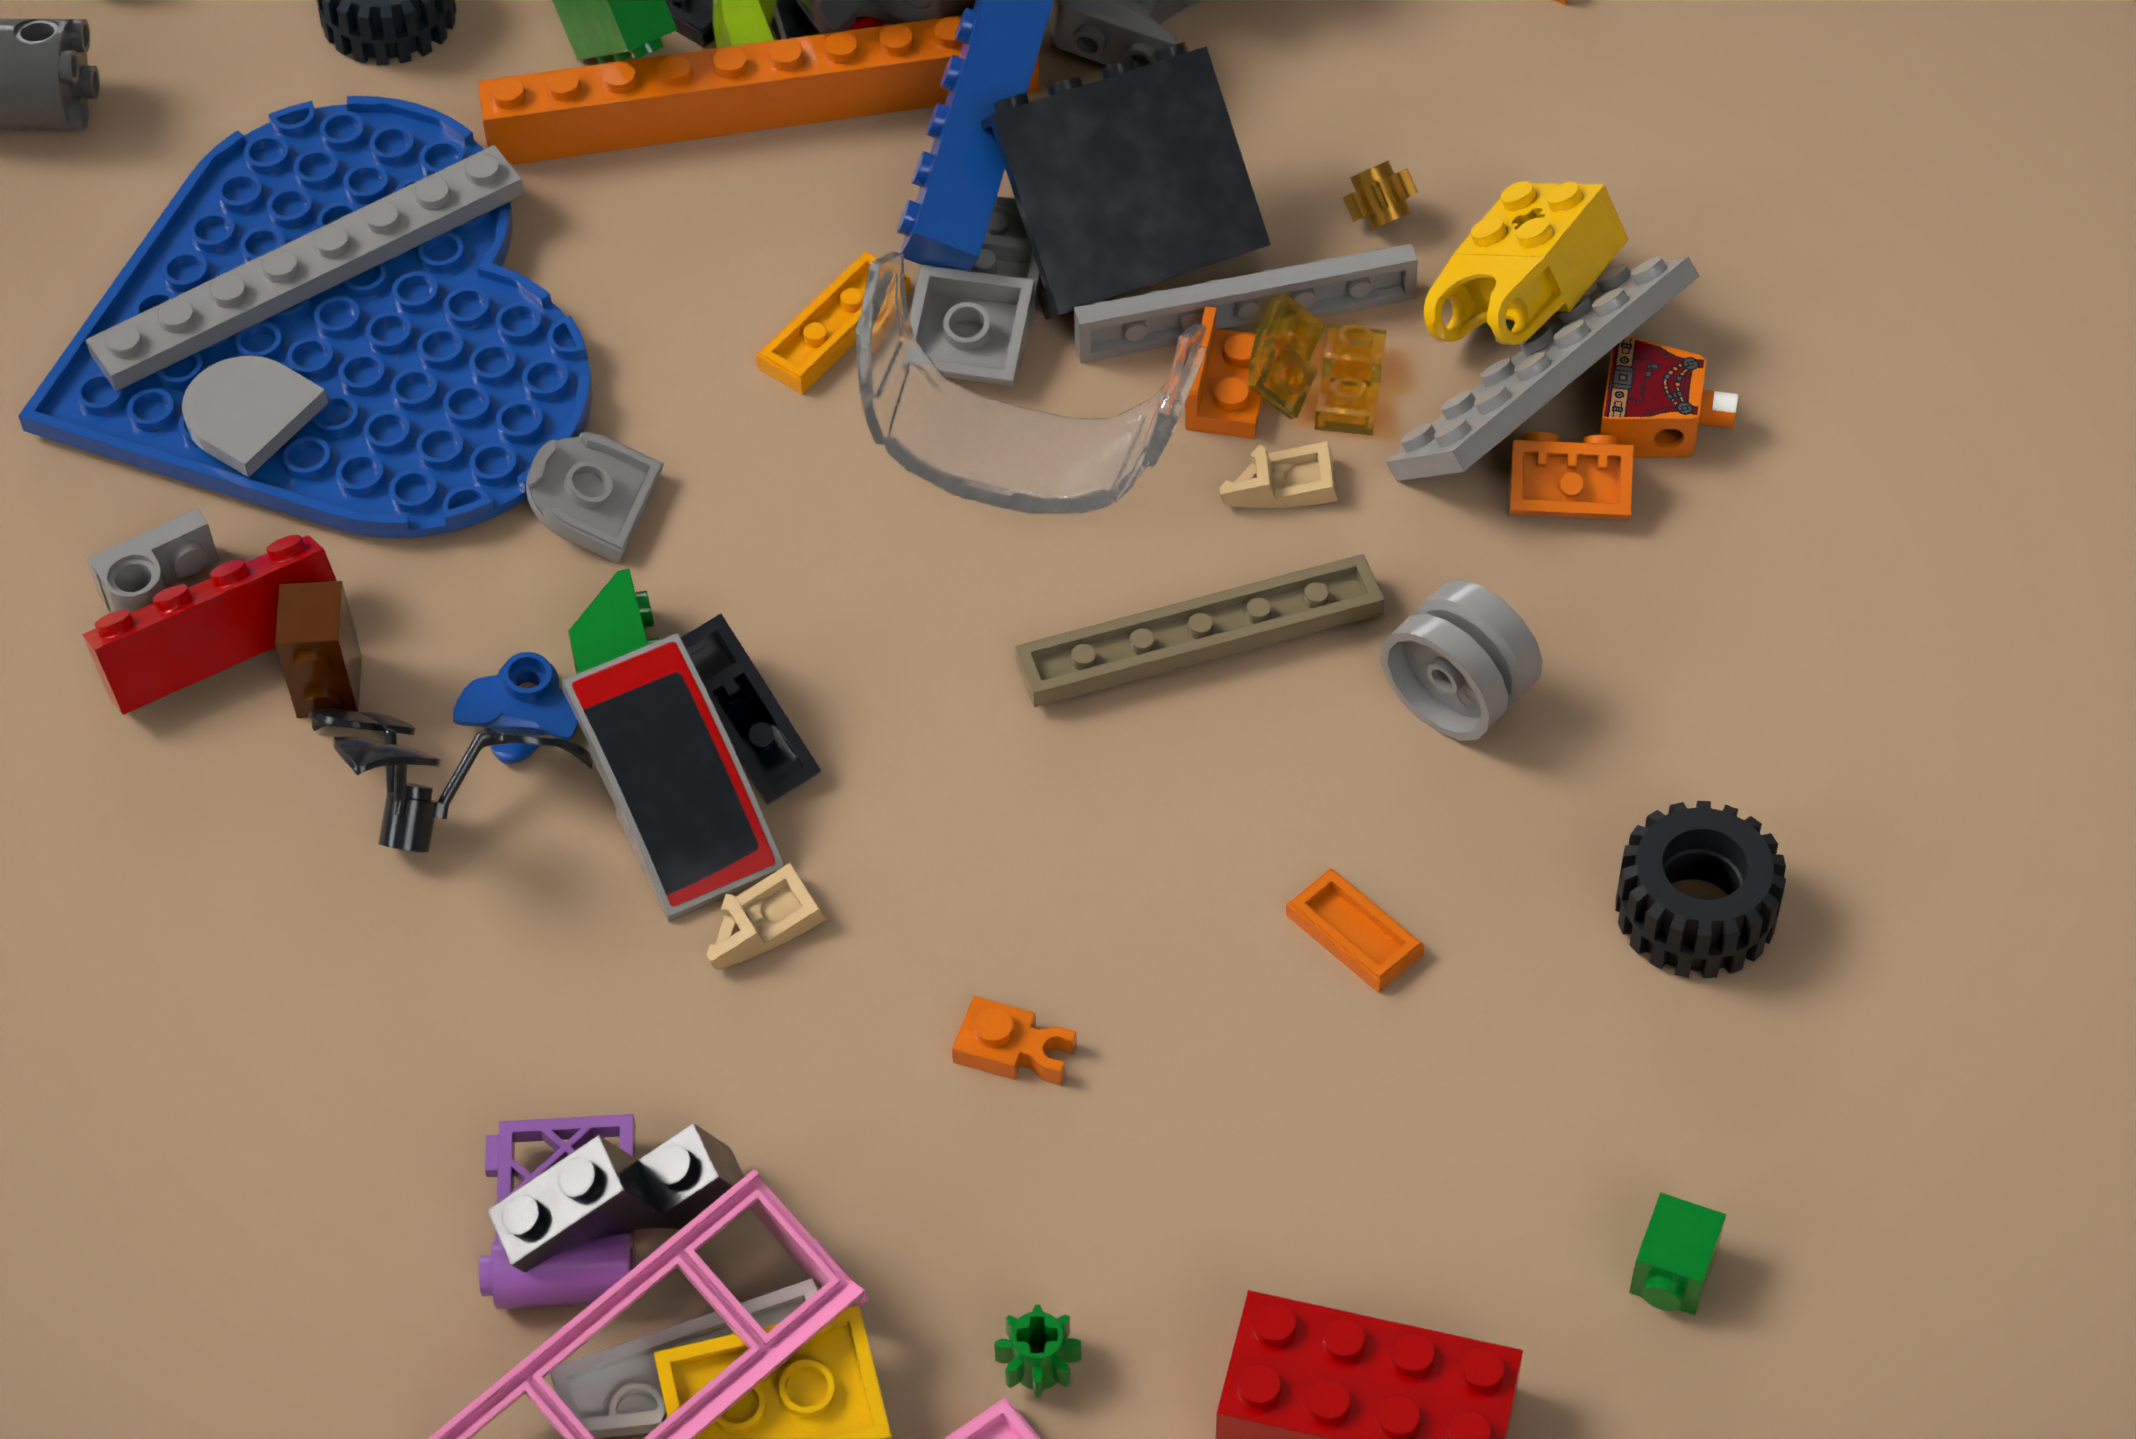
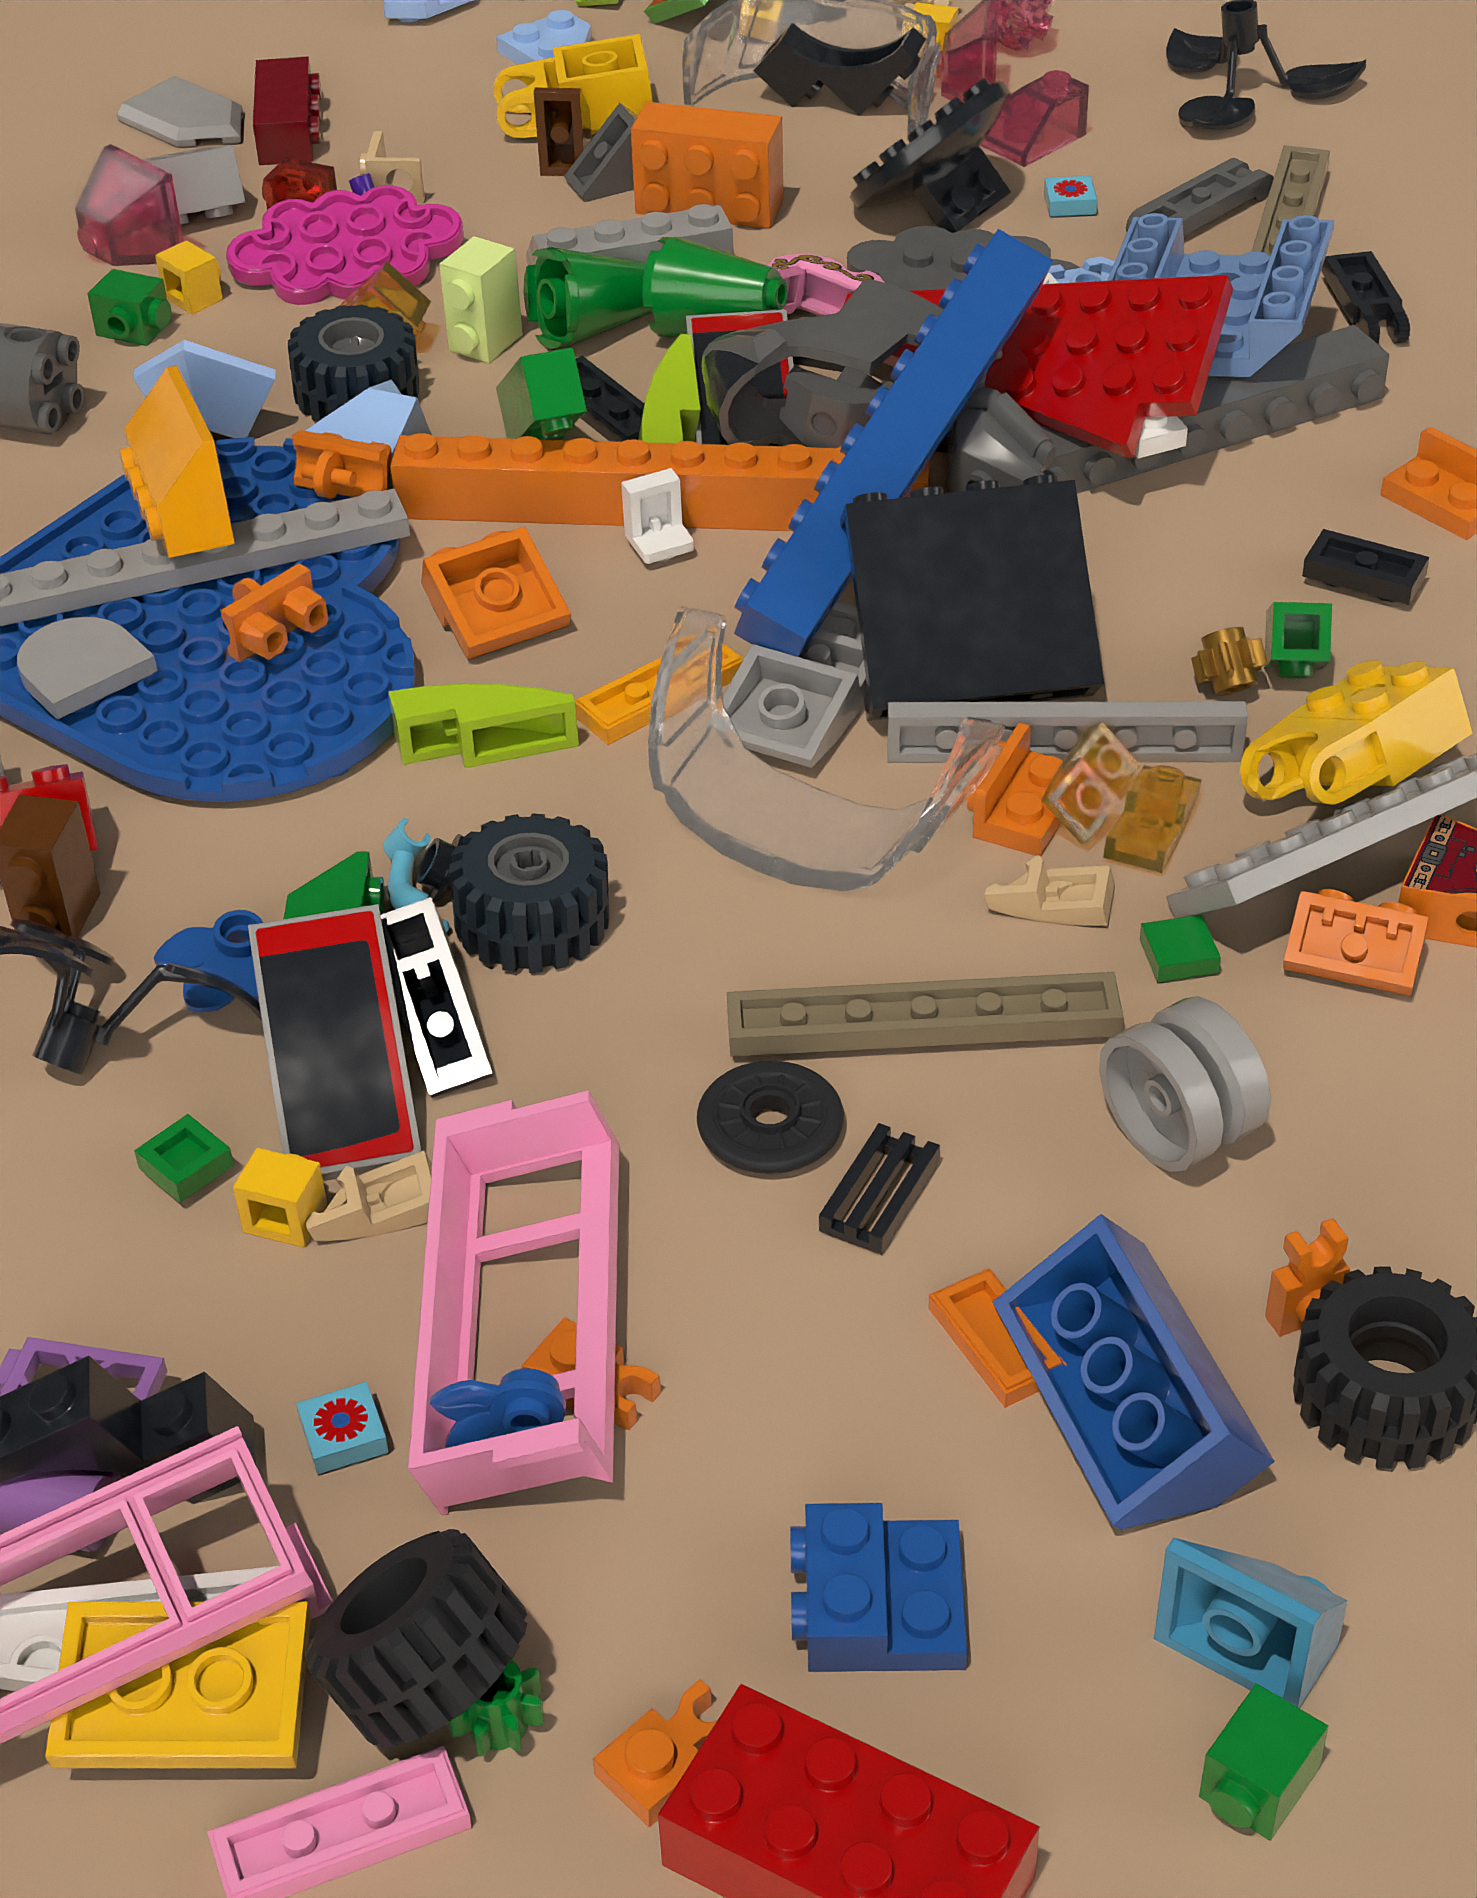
camera: 15 degrees right, 10 degrees down
(243, 59) = (222, 385): none -> light blue slope
(272, 171) = (176, 470): none -> light orange slope
(419, 317) = (268, 612): none -> orange hips
(428, 127) = (340, 464): none -> orange hips
(434, 73) = (376, 416): none -> light blue slope
(566, 916) = (184, 1158): none -> green plate
(591, 491) = (369, 785): light grey tile -> none
(635, 246) = (494, 592): none -> orange plate
(672, 606) = (403, 854): none -> medium azure piece
(674, 936) = (279, 1195): none -> yellow plate
(676, 397) = (481, 722): none -> lime slope
(697, 565) = (435, 866): none -> black plate
(768, 129) = (655, 516): none -> white bracket
(795, 578) = (530, 892): none -> black wheel
(810, 1140) = (342, 1428): none -> medium azure tile
(868, 841) = (467, 1154): none -> bright pink piece
(965, 1313) = (416, 1638): none -> black tyre
(973, 1105) = (487, 1410): none -> blue plate
(1095, 793) = (800, 1139): none -> black wheel
(1189, 1364) = (654, 1754): none -> orange plate
(1220, 770) = (898, 1152): none -> black tile
(1323, 1181) = (878, 1591): none -> blue plate
(1411, 513) = (1180, 948): none -> green tile
(1440, 159) = (1298, 638): none -> green brick
(1480, 58) = (1365, 567): none -> black plate
(1488, 947) = (1138, 1383): none -> blue slope
(1615, 818) = (1308, 1271): none -> orange plate
(1637, 1139) = (1247, 1618): none -> dark azure slope

